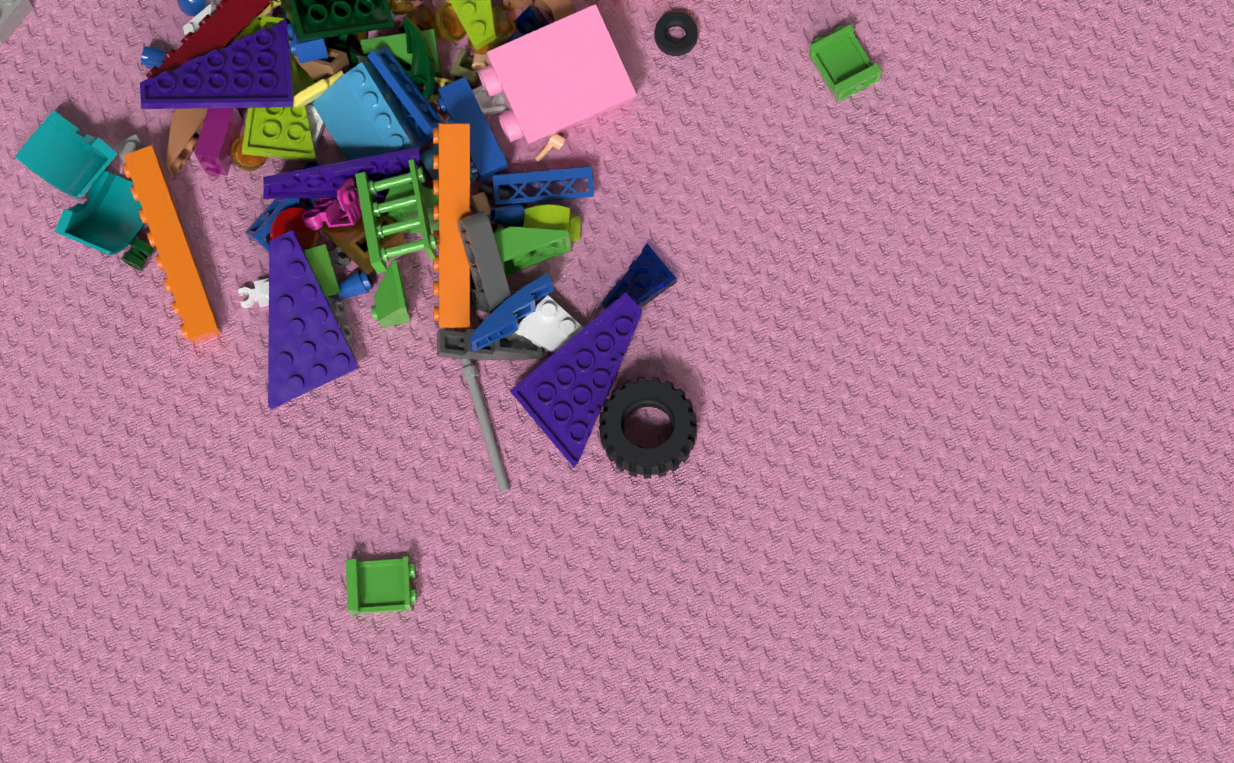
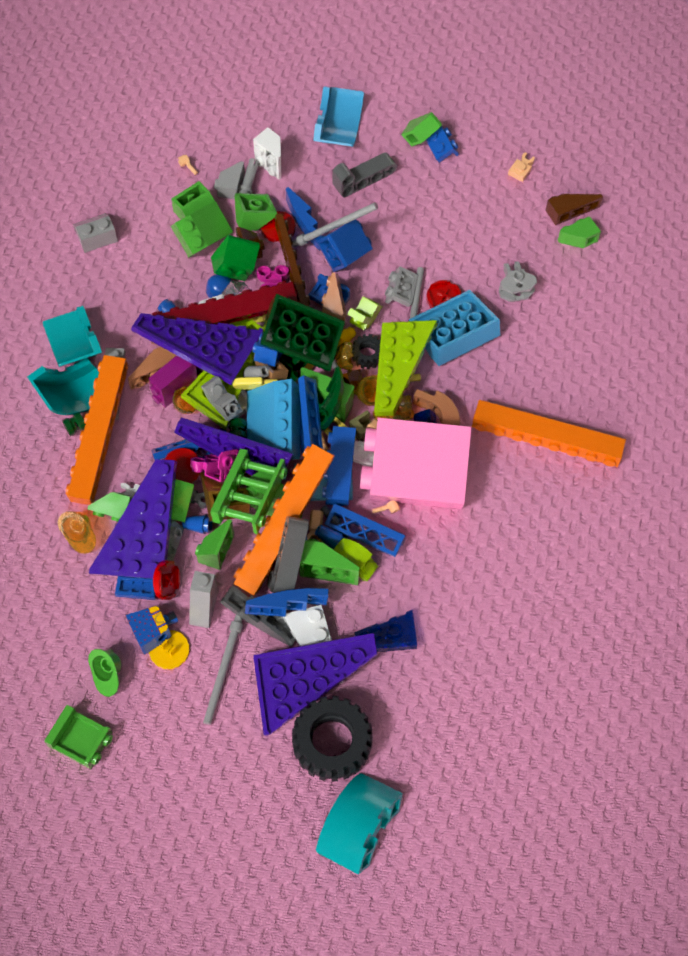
camera: 25 degrees right, 10 degrees down
(227, 371) = (77, 531): none -> clear yellow piece
(248, 318) = (111, 504): none -> slope
(294, 131) = (222, 401): none -> light grey slope
(310, 76) = (256, 371): none -> light grey cone
(328, 152) = (238, 426): none -> dark green wheel
(333, 394) = (135, 588): none -> blue plate
(361, 502) = (105, 670): none -> bright green piece
(363, 366) = (166, 580): none -> red tile
(379, 426) = (151, 627): none -> blue torso
(412, 439) = (171, 652): none -> yellow piece
(417, 364) = (202, 599): none -> light grey slope
(676, 48) = (526, 473): black tyre -> none
(723, 495) = (355, 821): none -> teal panel
(843, 63) = (625, 565): bright green panel -> none

